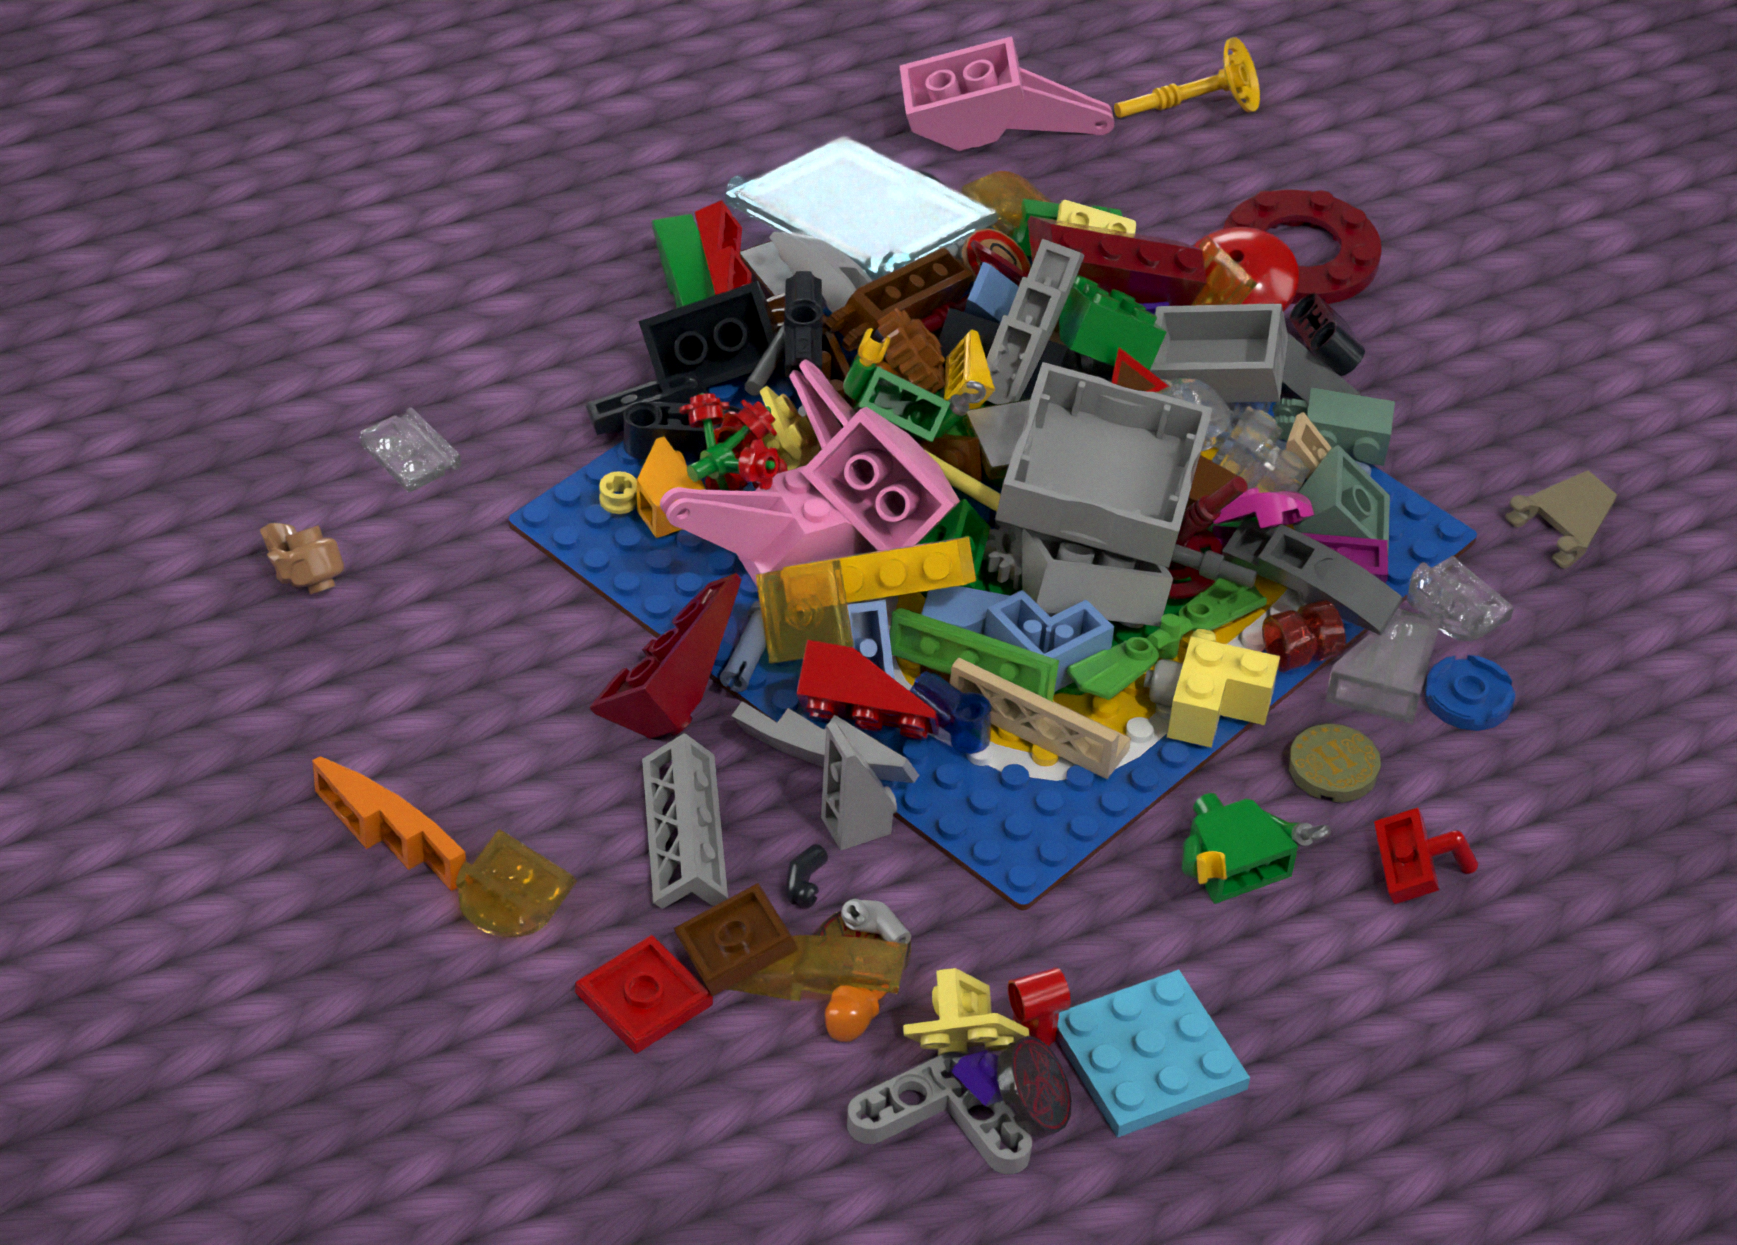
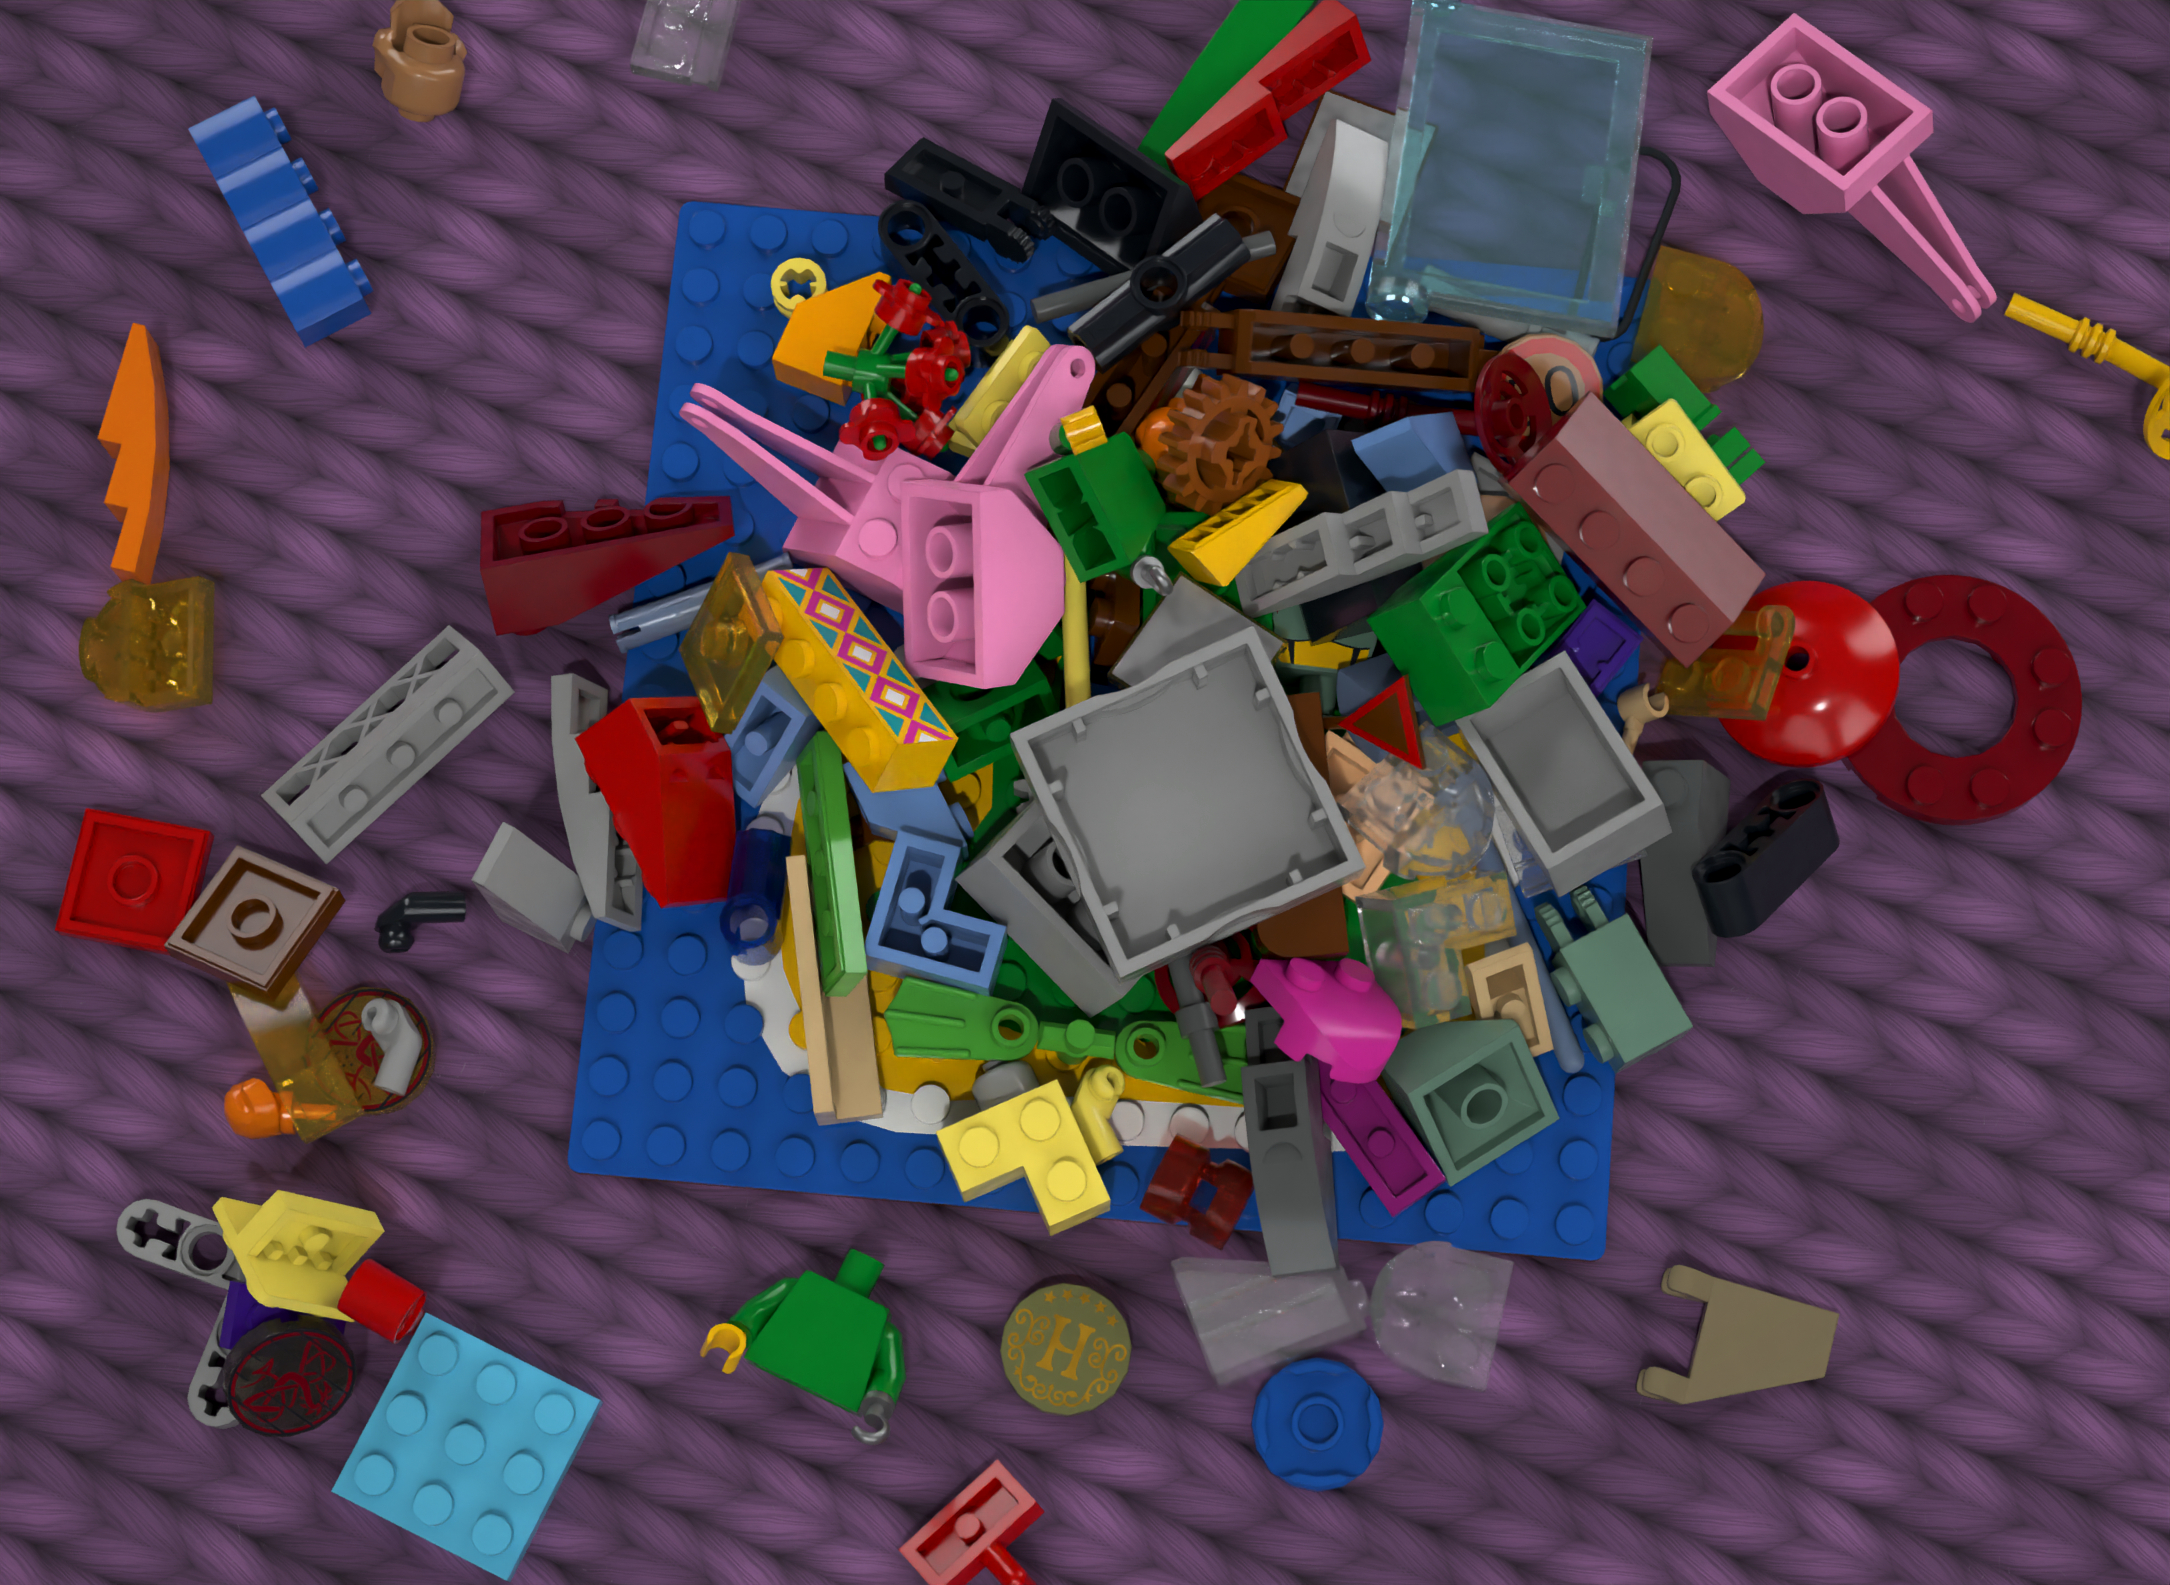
camera: 55 degrees right, 30 degrees up
(318, 675) = (280, 220): none -> blue brick

